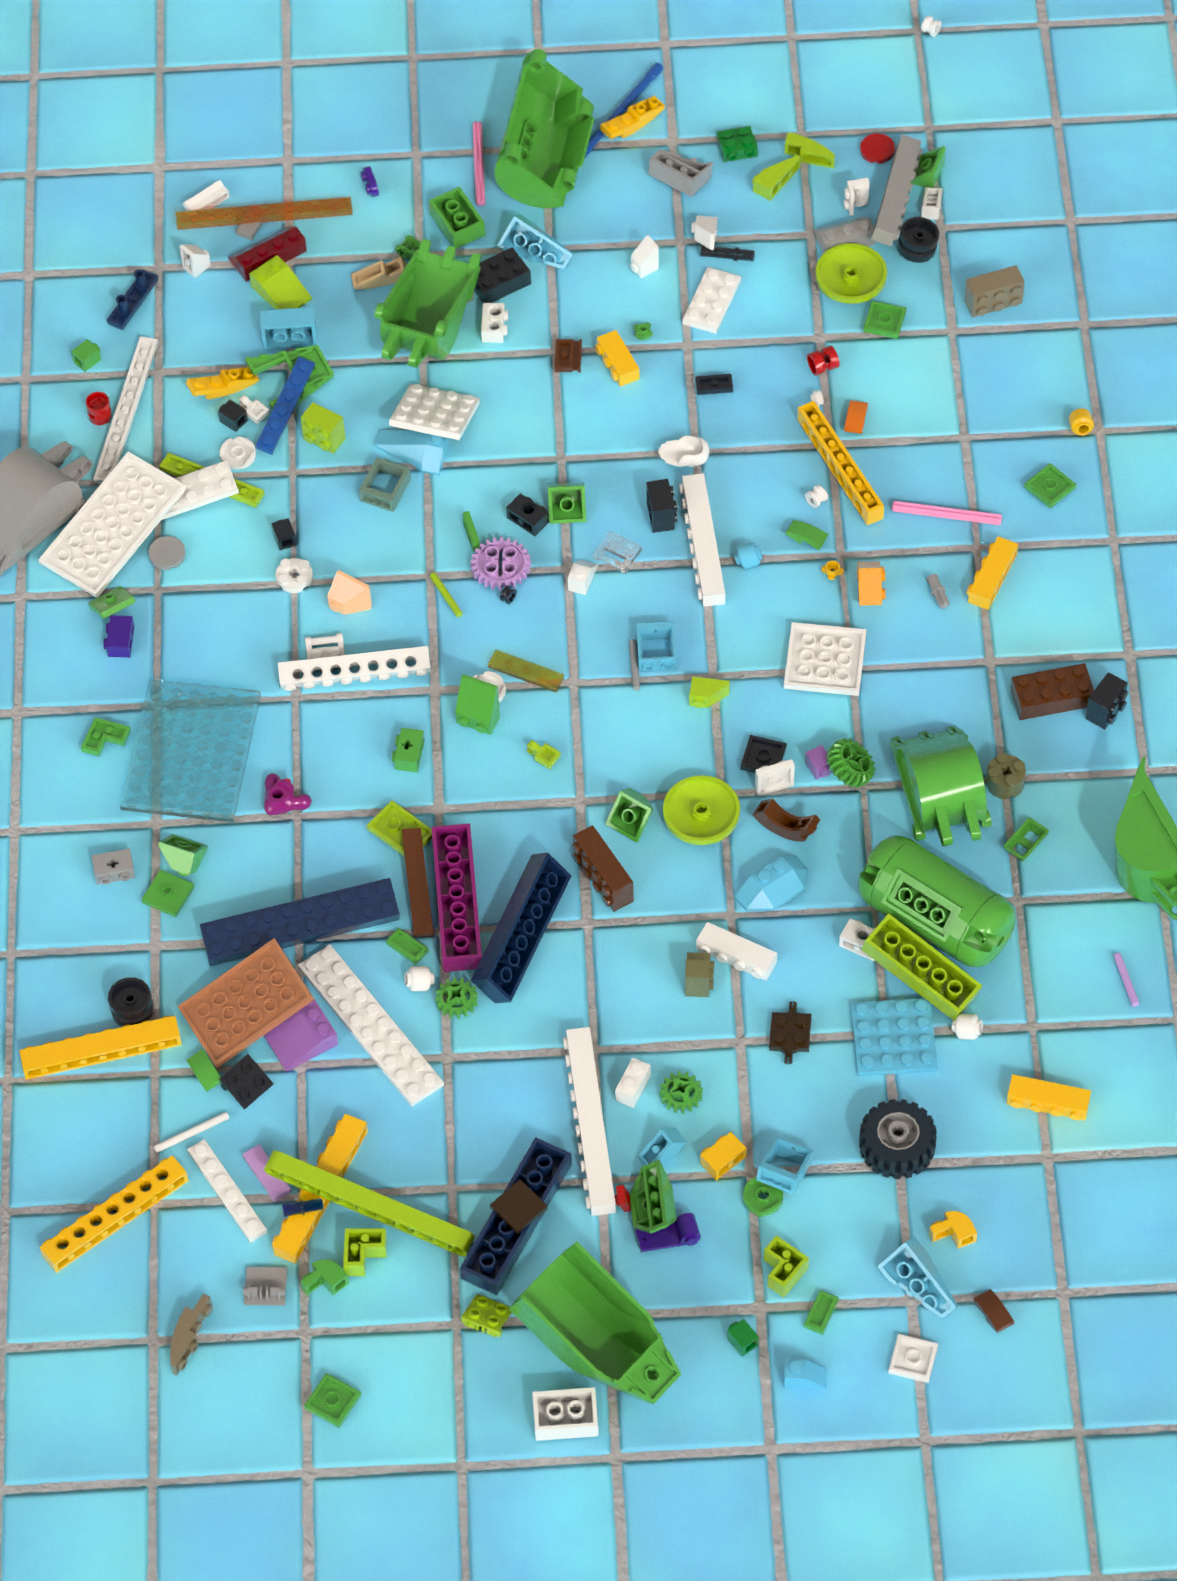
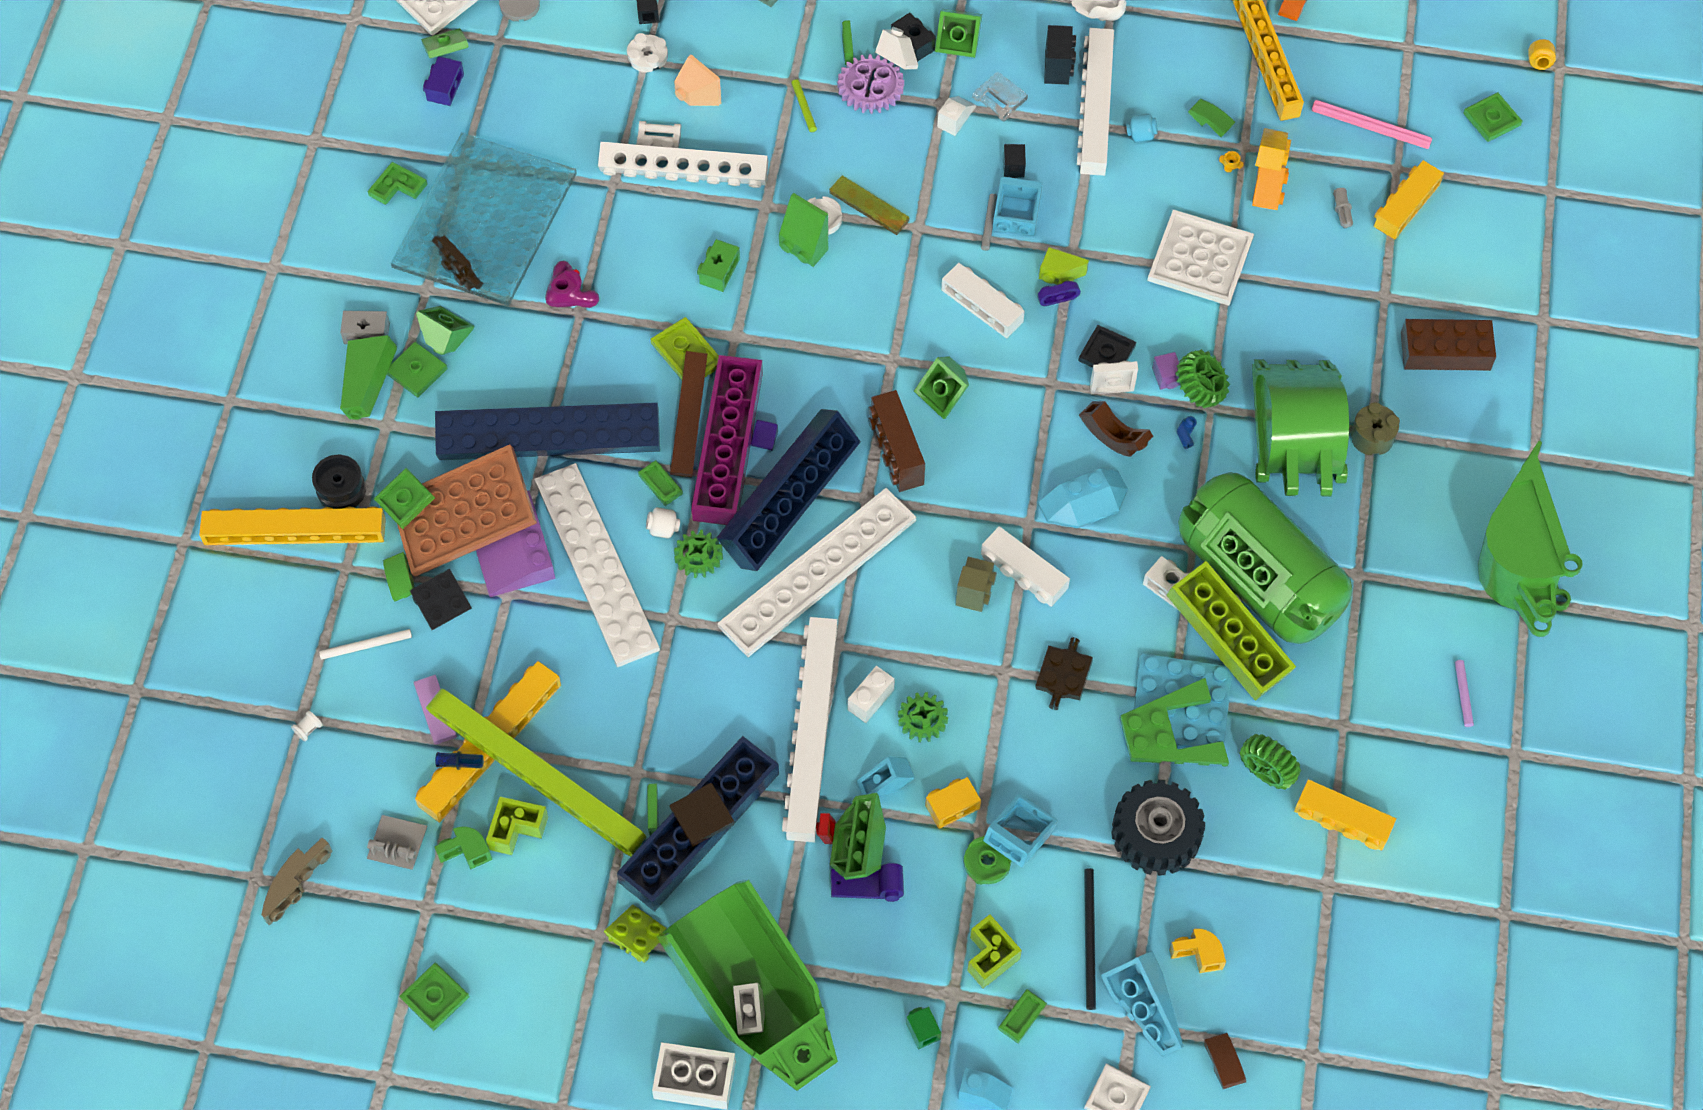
camera: 10 degrees right, 5 degrees up
(110, 1223) = (244, 730): yellow brick -> none
(125, 905) = (365, 373): none -> bright green slope
(161, 1209) = (306, 726): none -> white bush
(181, 794) = (457, 263): none -> dark brown plate
(192, 1003) = (404, 498): none -> bright green plate
(227, 1191) = (386, 721): white plate -> none
(474, 1213) = (652, 797): none -> bright green tile
(486, 886) = (764, 435): none -> dark purple slope
(508, 595) = (870, 118): black bush -> none
(517, 528) = (897, 48): none -> white slope
(544, 755) = (866, 301): lime plate -> none
(561, 992) = (816, 572): none -> white plate
(597, 1349) = (749, 1008): none -> white slope
(643, 606) = (1014, 160): none -> black brick
(646, 733) = (983, 300): none -> white brick
(701, 810) = (1023, 397): lime dish -> none
(710, 715) = (1059, 293): none -> dark purple plate
(816, 496) = (1232, 78): white wheel -> none
(845, 810) = (1184, 431): none -> blue arm
(862, 1240) = (1090, 939): none -> black piece
(867, 553) = (1273, 149): none -> yellow brick
(875, 1067) = (1151, 735): none -> bright green wing
(967, 1026) = (1268, 710): white head -> none
(977, 1066) = (1270, 761): none -> bright green gear
(1018, 838) = (1374, 503): bright green piece -> none
(1107, 701) = (1508, 368): black brick -> none

